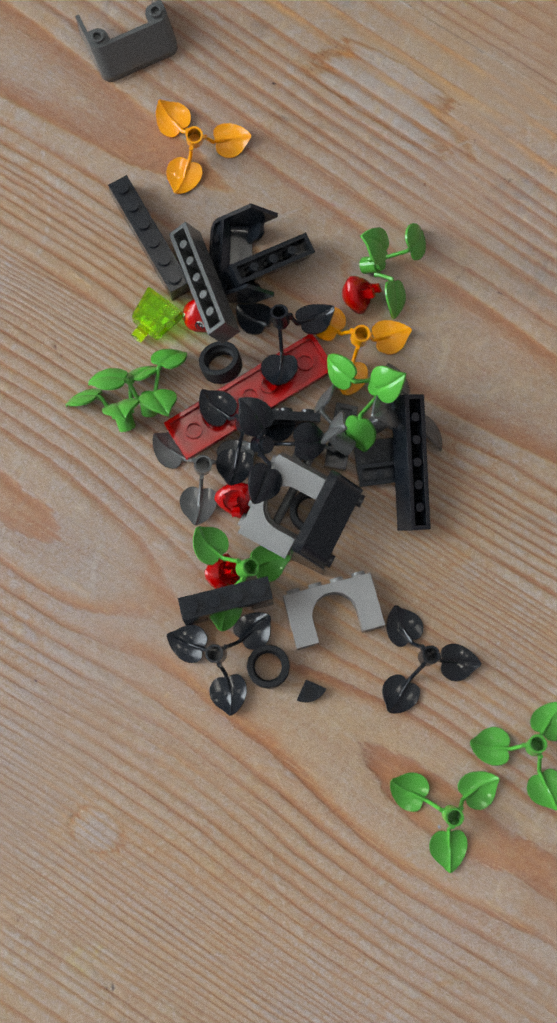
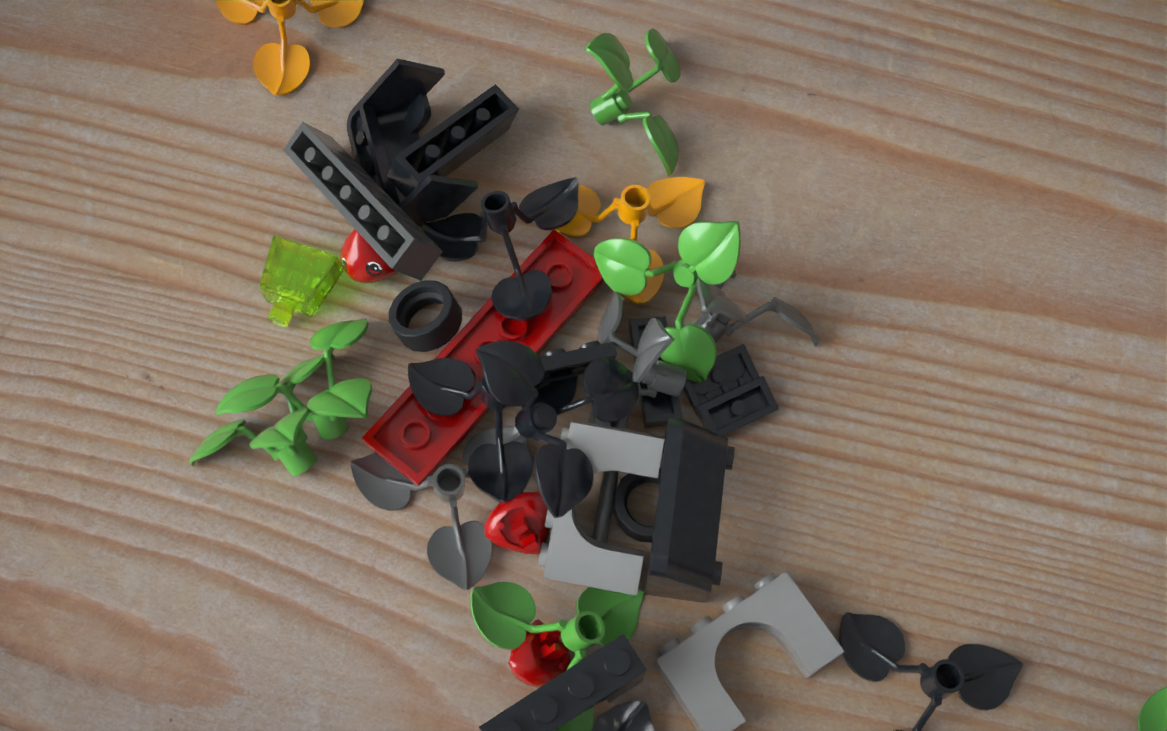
camera: 20 degrees left, 10 degrees down
(149, 237) = (255, 167): black brick -> none
(358, 293) = (604, 151): red piece -> none
(411, 464) = (786, 375): black brick -> none

